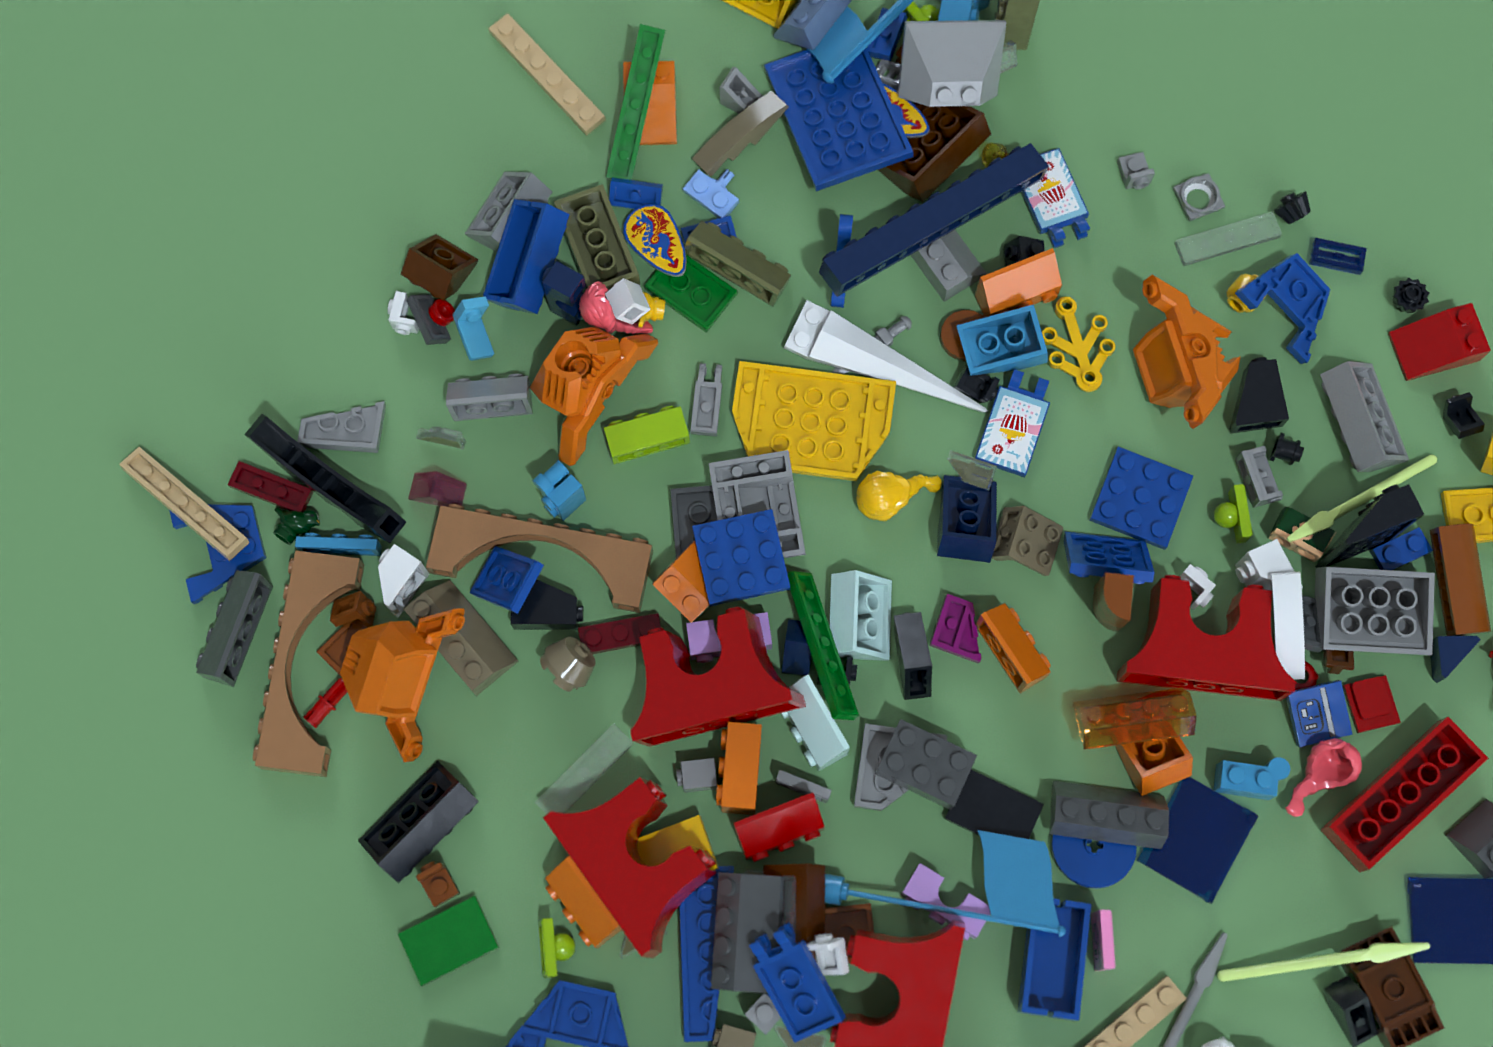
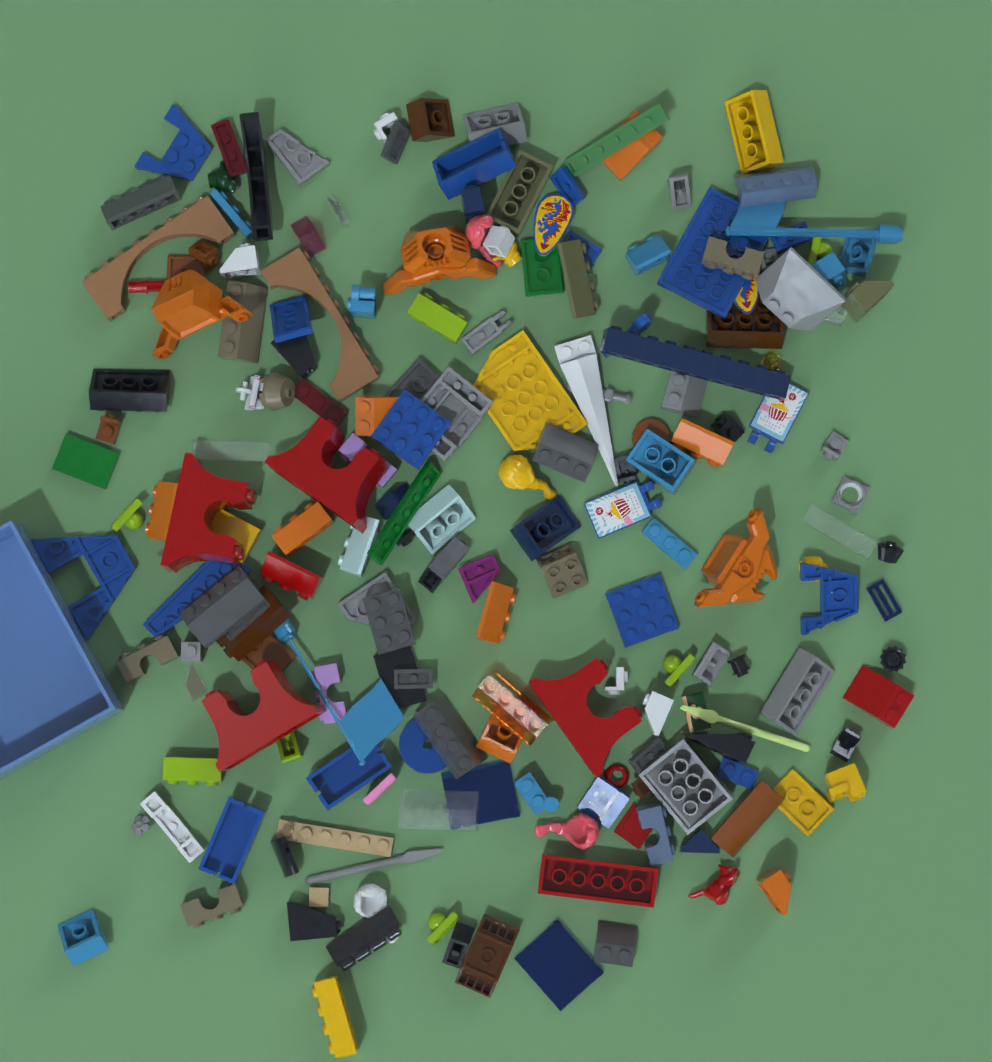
camera: 45 degrees right, 10 degrees up
(184, 503) = (179, 113): tan plate -> none
(441, 312) = (405, 146): red tile -> none
(471, 328) = (410, 172): medium azure bracket -> none
(489, 397) = (382, 216): light grey slope -> none
(542, 695) = (254, 386): none -> white hips
(547, 74) = (595, 71): tan plate -> none
(697, 775) = (280, 510): light grey brick -> none
(712, 193) = (608, 227): light blue plate -> none
(744, 128) = (656, 210): dark tan slope -> none
(778, 176) = (647, 255): none -> dark azure slope
(795, 984) = (216, 652): blue tile -> none
(802, 786) = (323, 569): light grey tile -> none
(830, 954) = (247, 657): white bracket -> none
(843, 107) = (716, 257): none -> dark tan arch
(906, 428) = (564, 452): none -> dark grey slope
(970, 1003) = (289, 748): none -> lime slope
(972, 470) = (575, 508): clear tile -> none
(1010, 795) = (413, 678): none -> dark grey plate
(1078, 347) = (698, 505): yellow plant -> none
(1093, 411) = (669, 543): none -> dark azure plate
(1104, 554) = (586, 620): blue plate -> none
(1113, 600) = (560, 643): dark orange brick -> none
(1180, 897) = (439, 810): none -> clear slope
(1259, 398) = (756, 626): black slope -> none
(1289, 622) = (632, 745): white slope -> none
(1310, 1011) = (441, 926): none -> lime tile
(1376, 953) = (496, 931): yellowish green piece -> none
(1422, 697) = (659, 850): none -> sand blue arch

